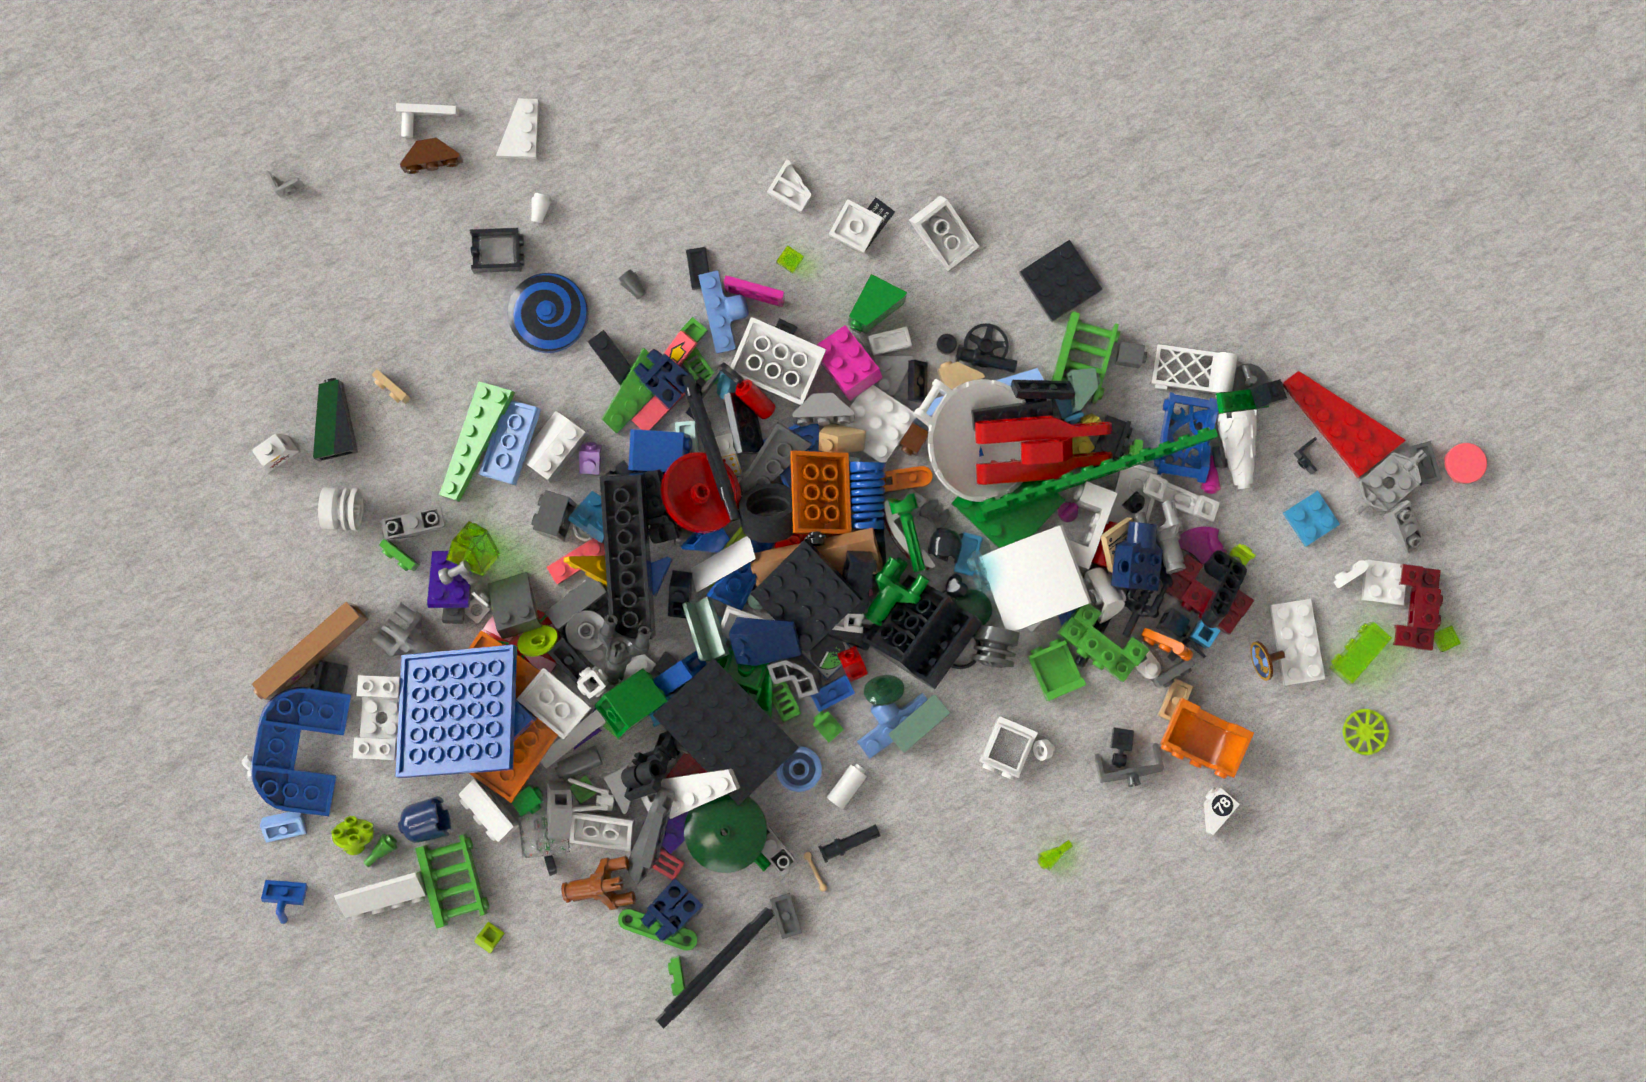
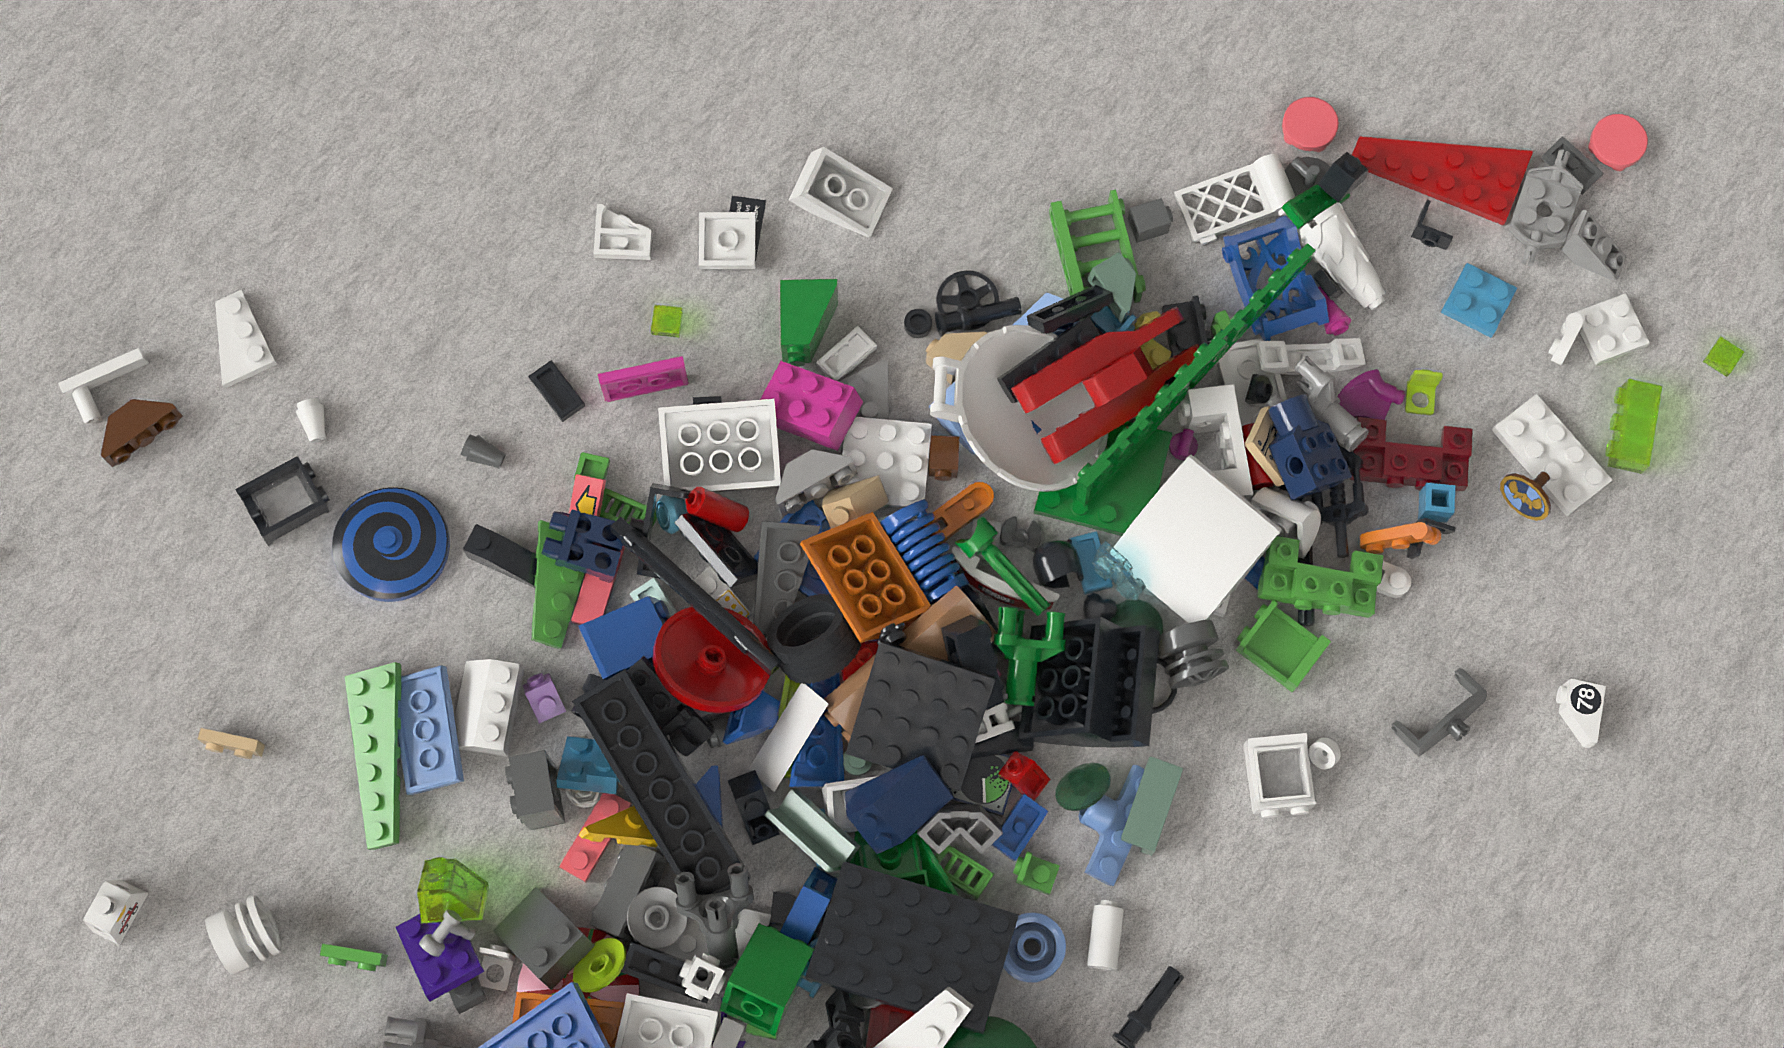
camera: 30 degrees left, 10 degrees down
(333, 424) = (178, 832): slope -> none
(413, 524) = (352, 903): light grey slope -> none
(721, 311) = (615, 426): medium blue plate -> none
(917, 380) = (908, 384): black plate -> none
(1050, 857) = (1412, 886): clear neon green cone -> none
(1060, 281) = (1014, 178): black plate -> none
(1122, 740) = (1416, 689): black plate -> none
(1166, 678) = (1424, 577): dark grey plate -> none
(1174, 623) = (1391, 509): black slope -> none
(1175, 692) = (1450, 604): tan plate -> none
(1205, 739) = (1518, 628): orange cylinder -> none
(1230, 576) = (1429, 419): black beam -> none
(1271, 345) = (1310, 124): none -> coral tile
(1365, 731) = (1699, 517): lime wheel -> none
(1423, 608) = (1675, 334): dark red bracket -> none

